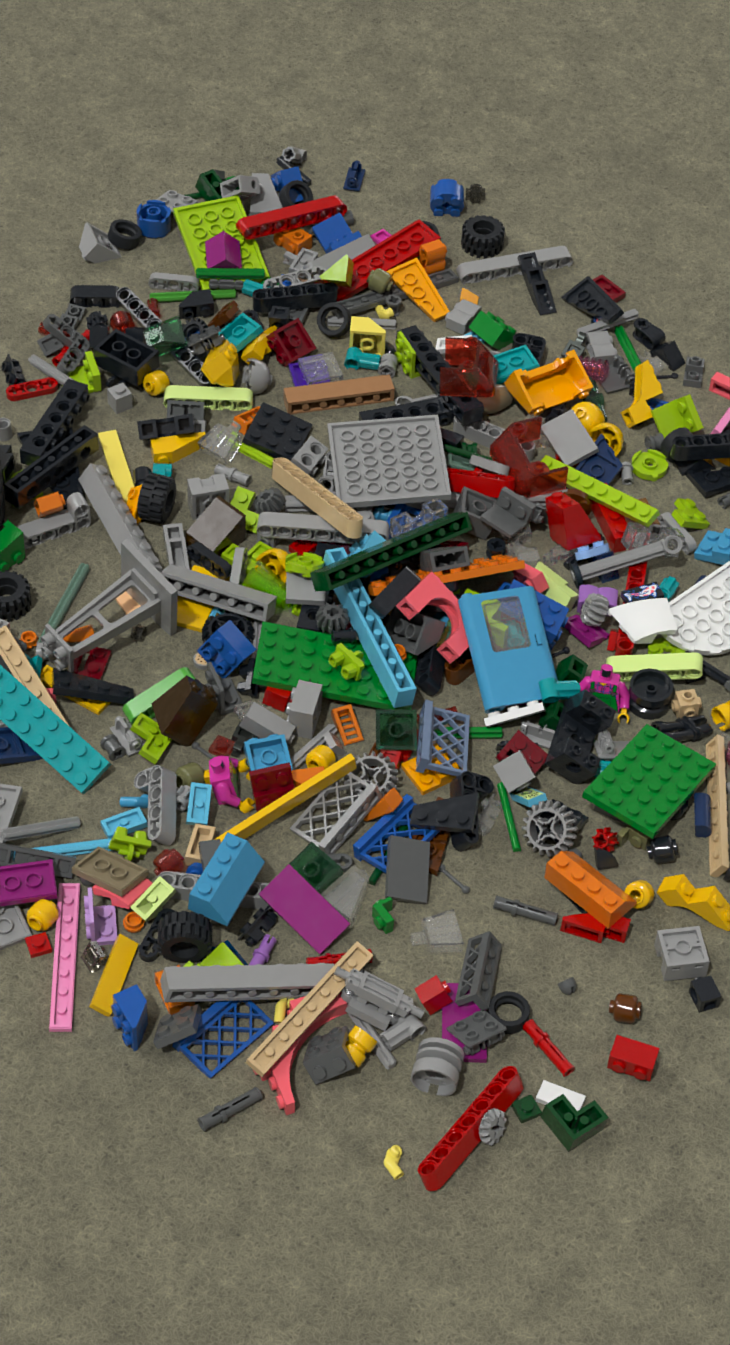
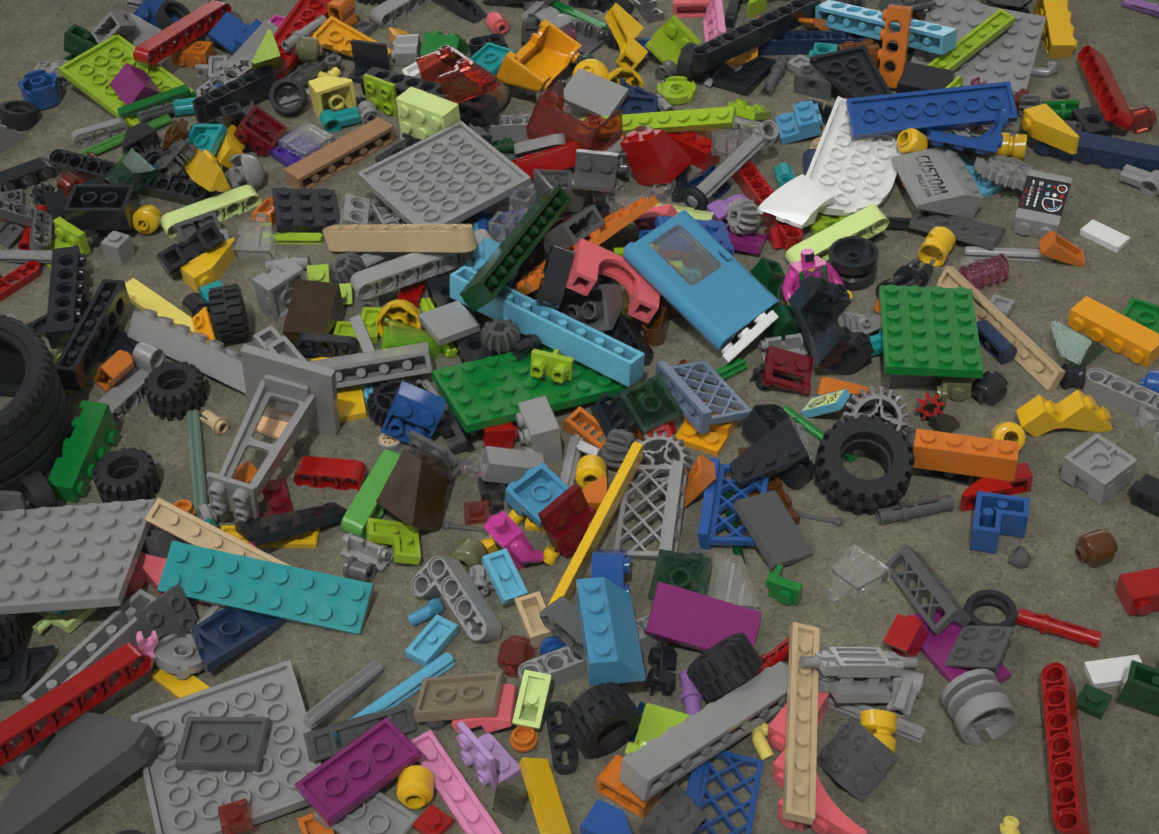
camera: 25 degrees left, 5 degrees down
(87, 552) = (175, 390): none -> black tyre
(94, 581) = (218, 424): none -> tan pin
(129, 845) = (460, 659): lime hips -> none
(143, 663) = (330, 472): none -> red beam
(271, 837) = (612, 565): none -> blue brick
(290, 946) = (724, 666): none -> black tyre
(303, 564) = (433, 299): lime plate -> none
(352, 745) = (616, 447): none -> dark grey gear
(365, 727) = (613, 414): none -> black hinge
(385, 264) = (306, 31): none -> light grey pin
(416, 393) = (424, 113): none -> yellowish green brick
(422, 315) = (368, 55): none -> black bracket
(493, 1118) = (1085, 737): light grey gear -> none
(502, 832) = (870, 436): none -> black tyre
(515, 772) = (797, 385): light grey head -> none
(552, 788) = (829, 385): none -> orange slope
(555, 325) = (497, 23): none -> coral brick
(555, 690) = (777, 293): teal piece -> none
(571, 945) = (997, 515): none -> blue brick
(586, 552) = (694, 170): light blue plate -> none
(643, 592) = (771, 184): tile -> none
(686, 703) = (891, 257): tan brick -> none

